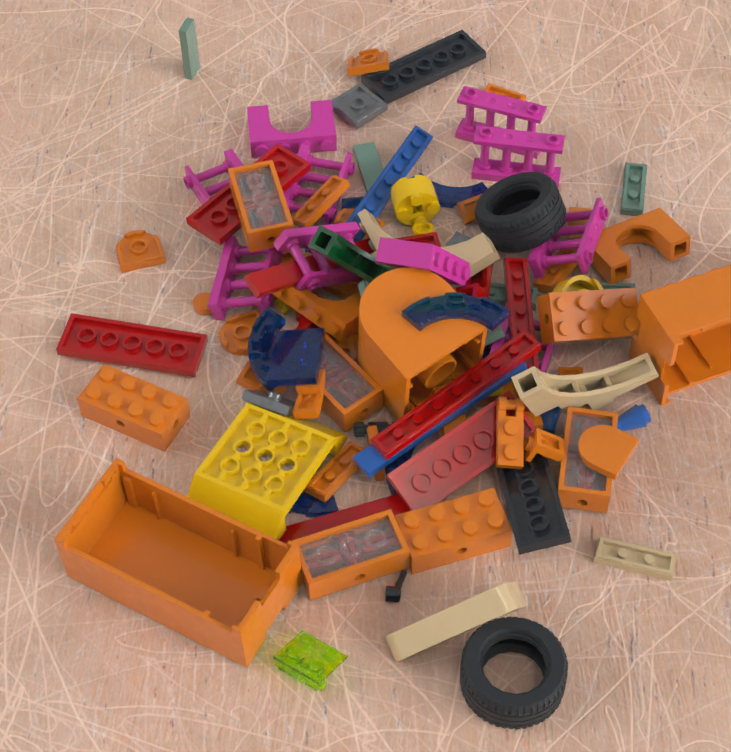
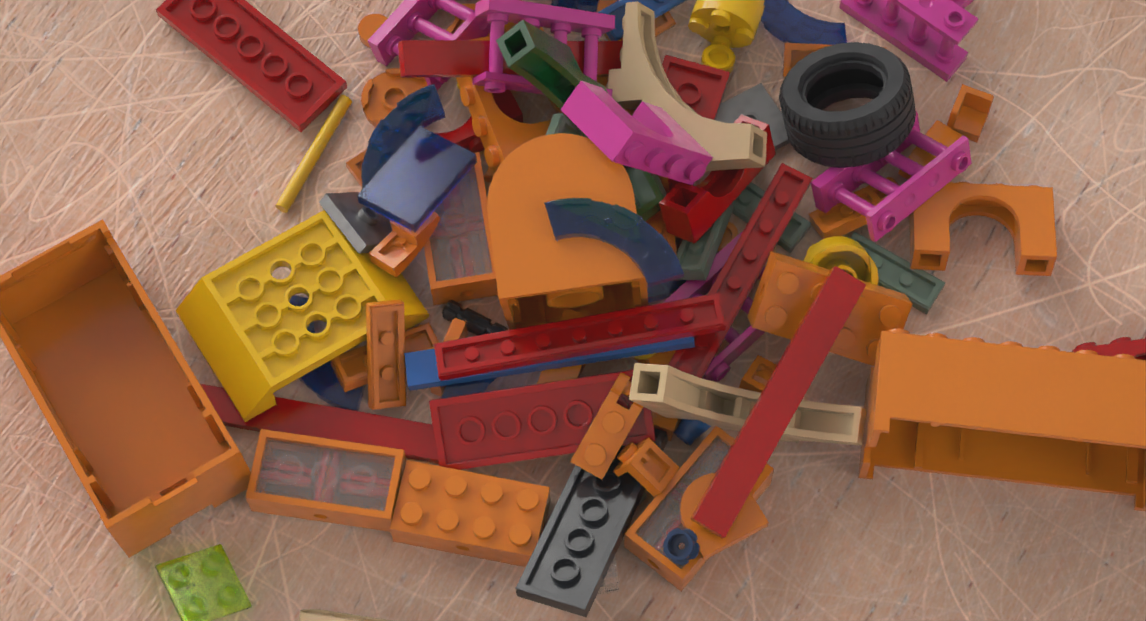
camera: 30 degrees right, 15 degrees up
(134, 407) = (199, 140): orange brick -> none
(211, 386) = (313, 153): none -> yellow bar
(340, 464) = (386, 354): none -> orange tile
(393, 593) = (353, 557): black hand -> none
(584, 192) = (970, 112): none -> orange panel
(601, 469) = (672, 542): none -> dark blue plate
(602, 370) = (778, 402): none -> red tile
(633, 189) = (1048, 135): sand green tile -> none
(634, 418) = (803, 480): blue cone -> none

